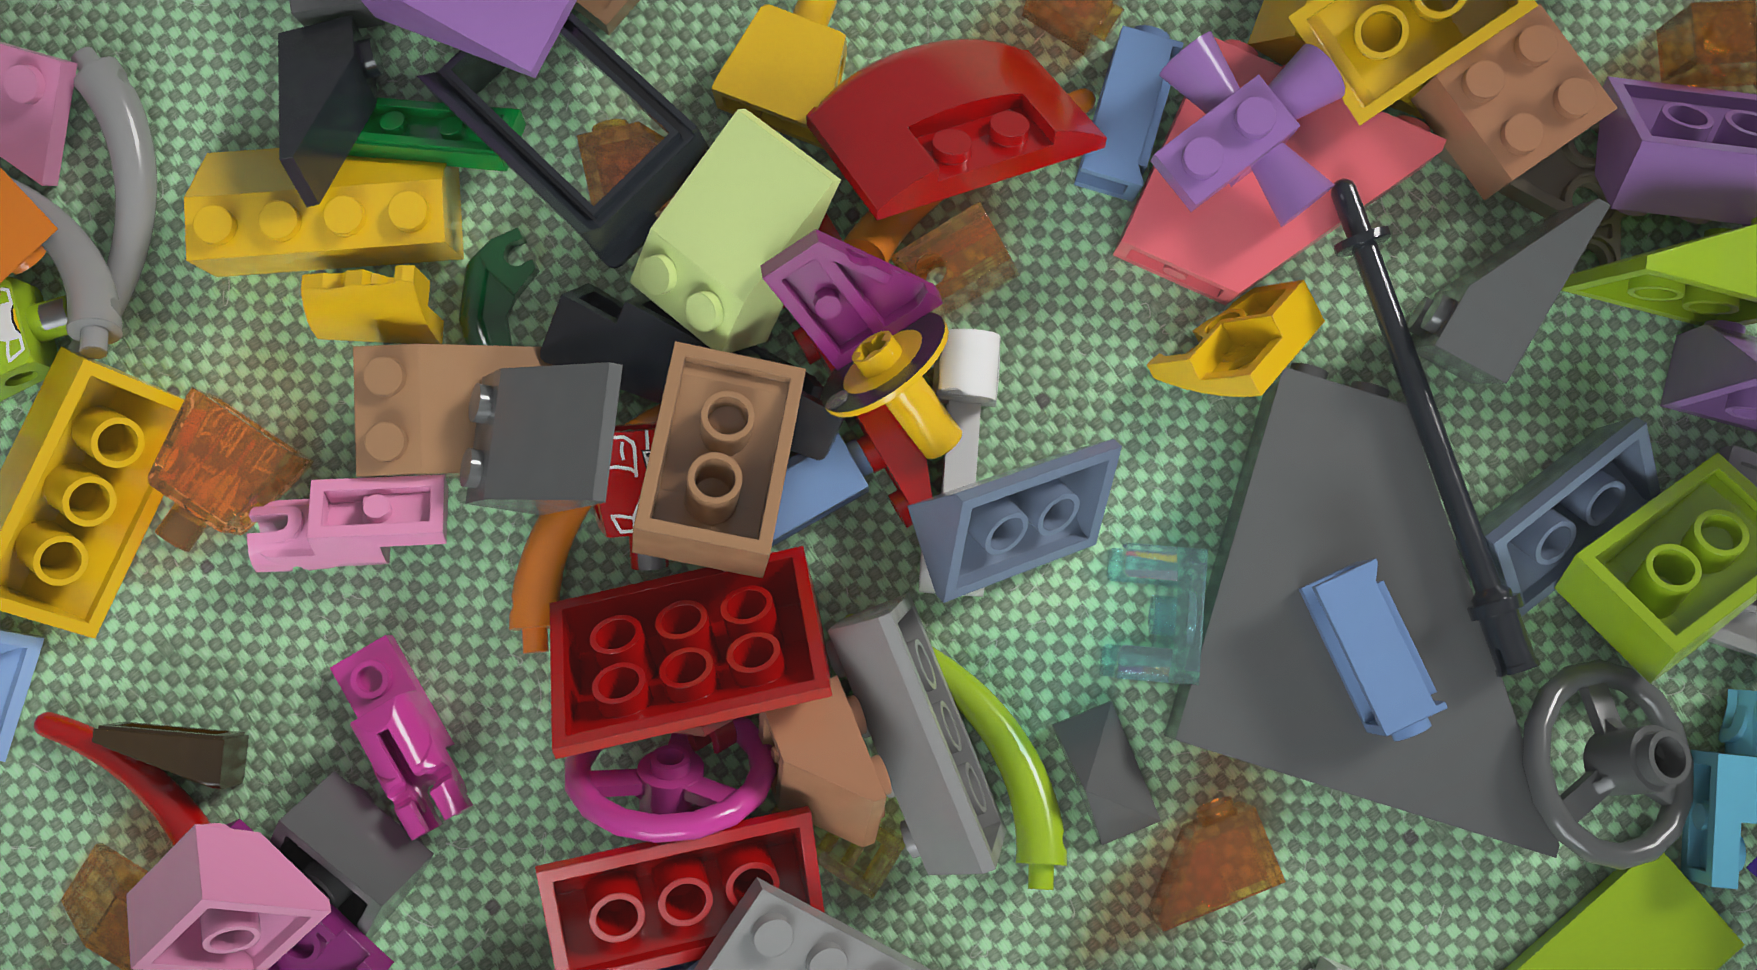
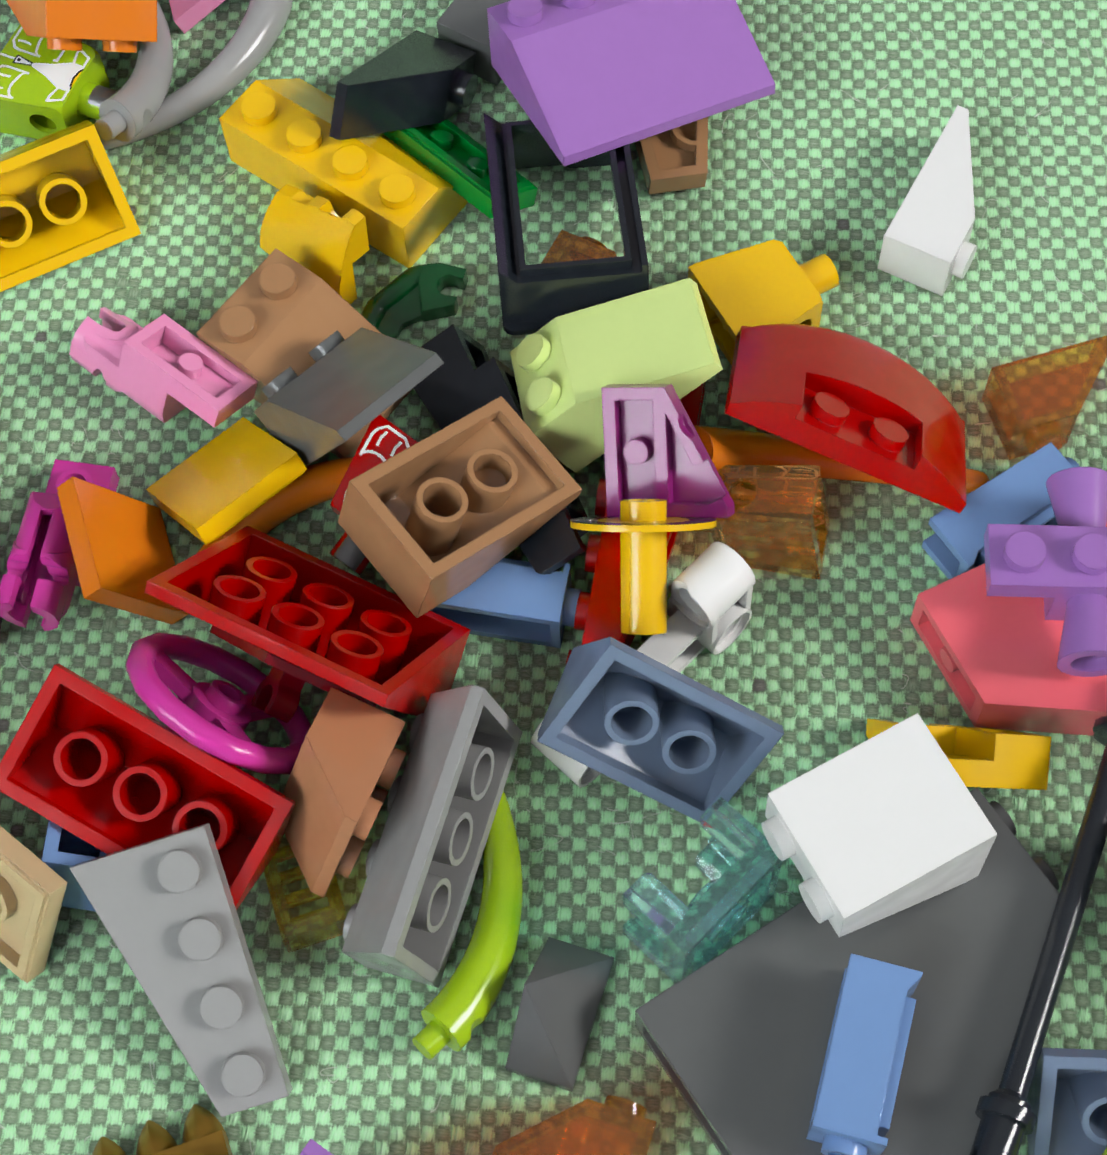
camera: 45 degrees right, 20 degrees down
(219, 469) = (112, 266): clear orange torso -> none
(468, 708) = (117, 548): none -> orange tile
(493, 576) = (226, 480): none -> yellow tile
(1268, 479) = (878, 828): none -> white slope

